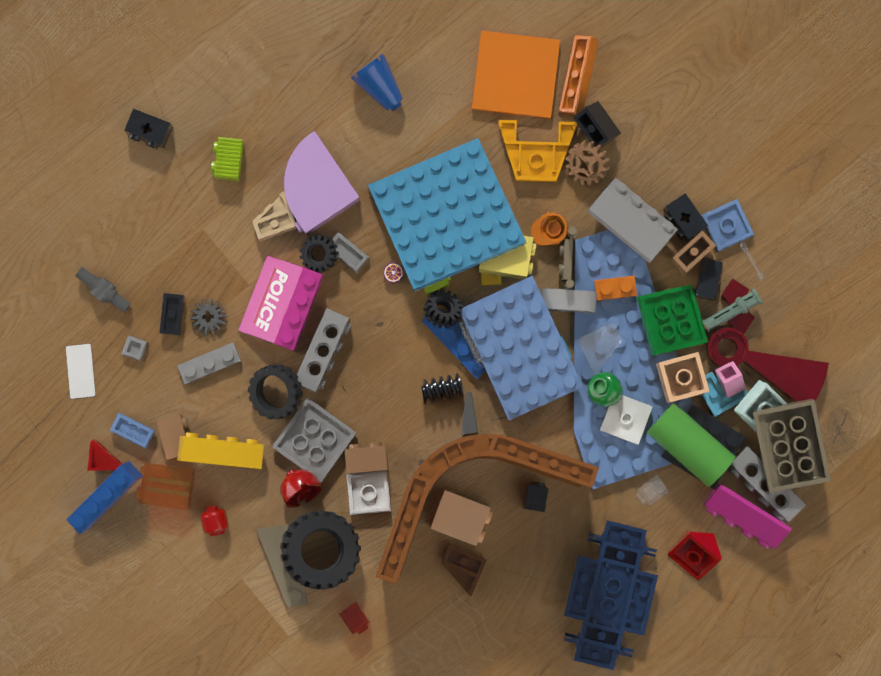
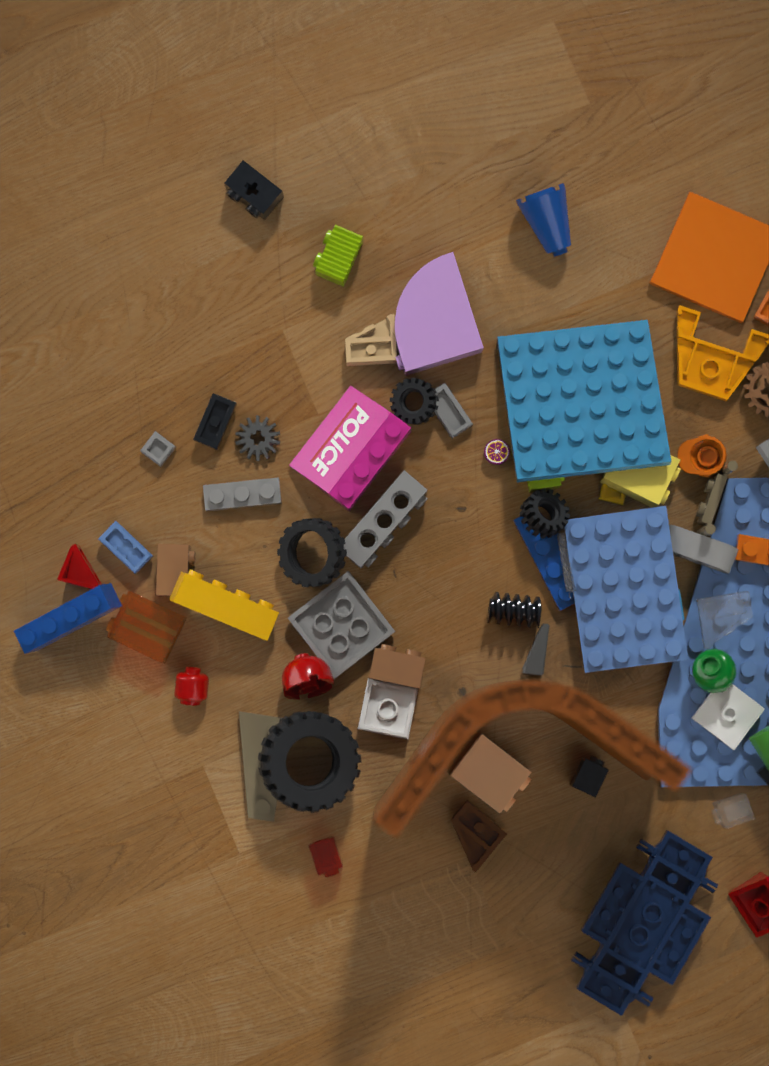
camera: 15 degrees right, 0 degrees up
(80, 371) = (84, 457): white sticker -> none
(103, 289) = (141, 367): dark grey pin -> none

